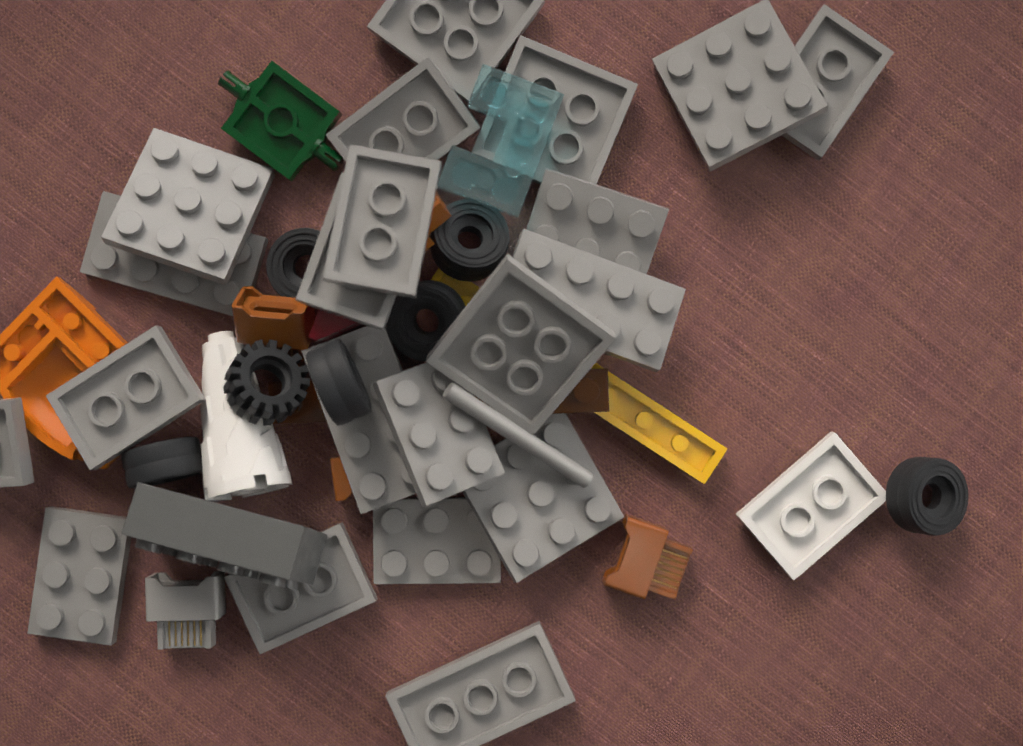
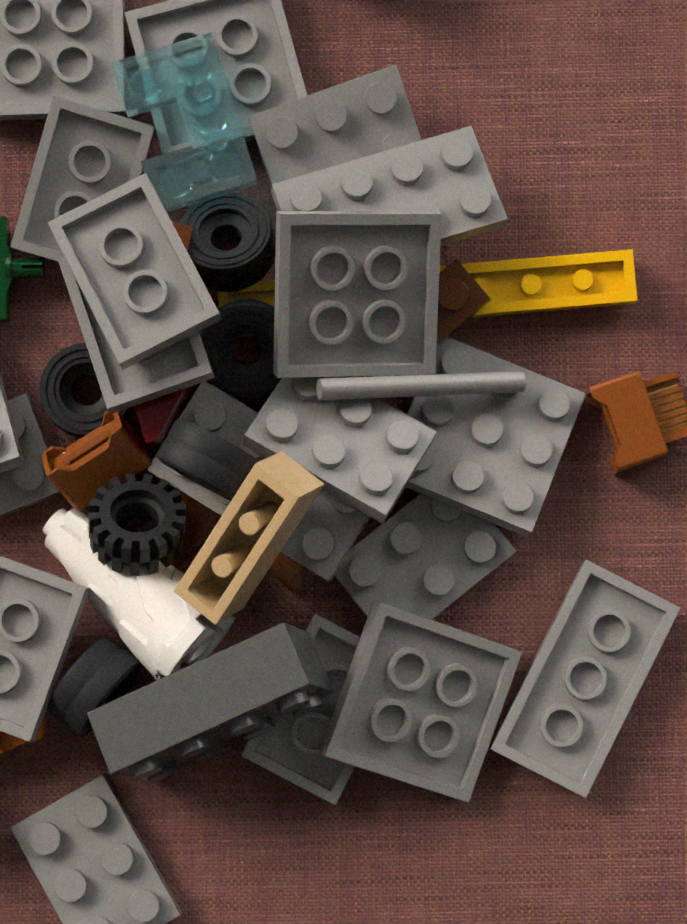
camera: 30 degrees left, 5 degrees down
(185, 609) = (228, 820): light grey piece -> none
(326, 451) = (248, 537): none -> tan brick
(362, 633) = (420, 701): none -> light grey plate

